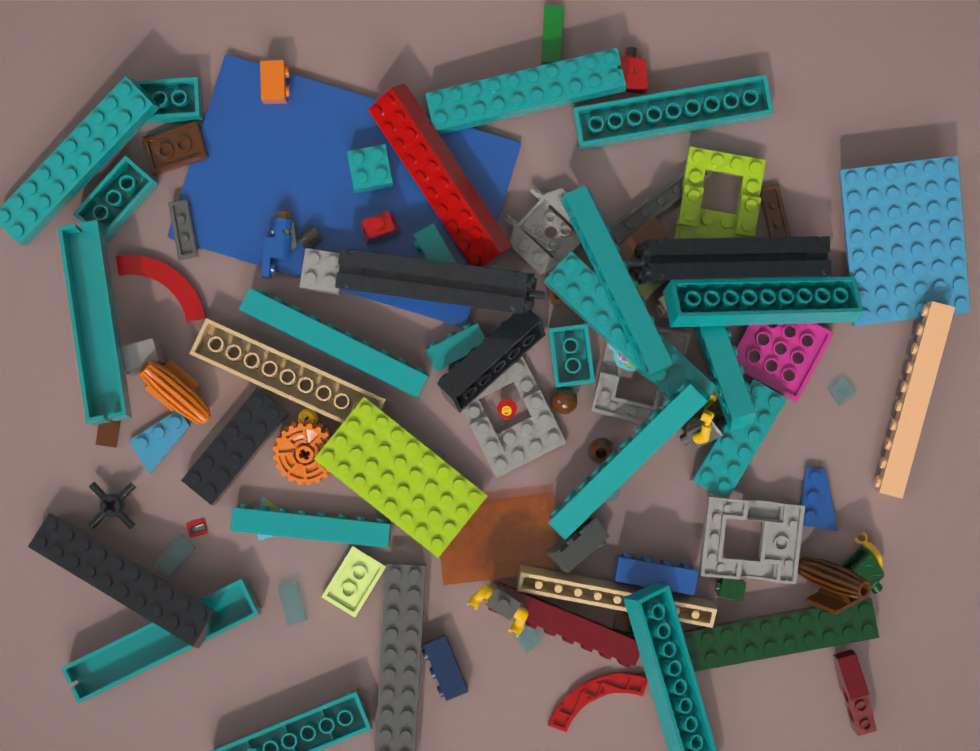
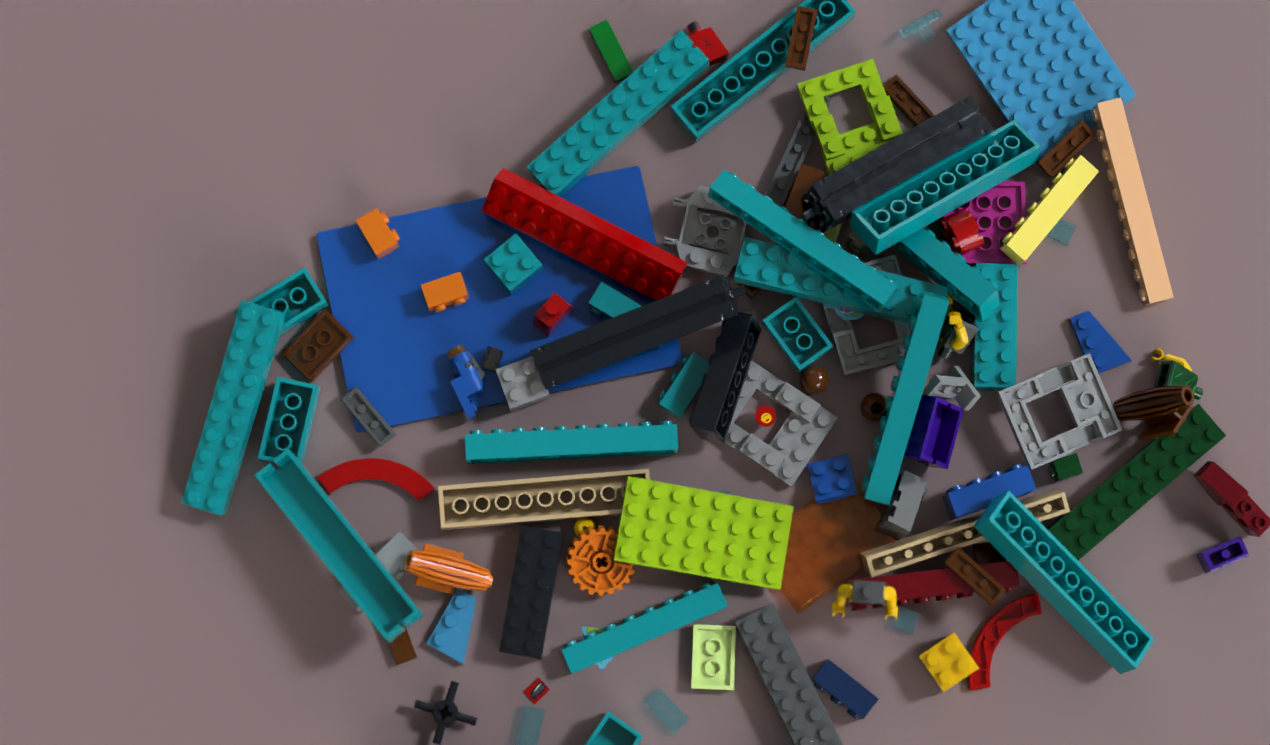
camera: 30 degrees left, 5 degrees down
(301, 161) = (445, 292): none -> orange brick
(533, 491) = (832, 479): none -> blue plate
(542, 694) = (949, 662): none -> yellow brick
(601, 638) = (974, 576): none -> reddish brown tile
(637, 499) = (934, 432): none -> dark purple piece
(676, 469) = (954, 385): none -> light grey bracket
(714, 110) = (801, 38): none -> reddish brown plate
(756, 346) = (961, 232): none -> red brick
(819, 733) = (1222, 554): none -> dark purple brick
(823, 155) = (922, 26): none -> clear light blue tile
(840, 367) = (1048, 210): none -> light yellow brick
(884, 324) = (1066, 148): none -> reddish brown plate

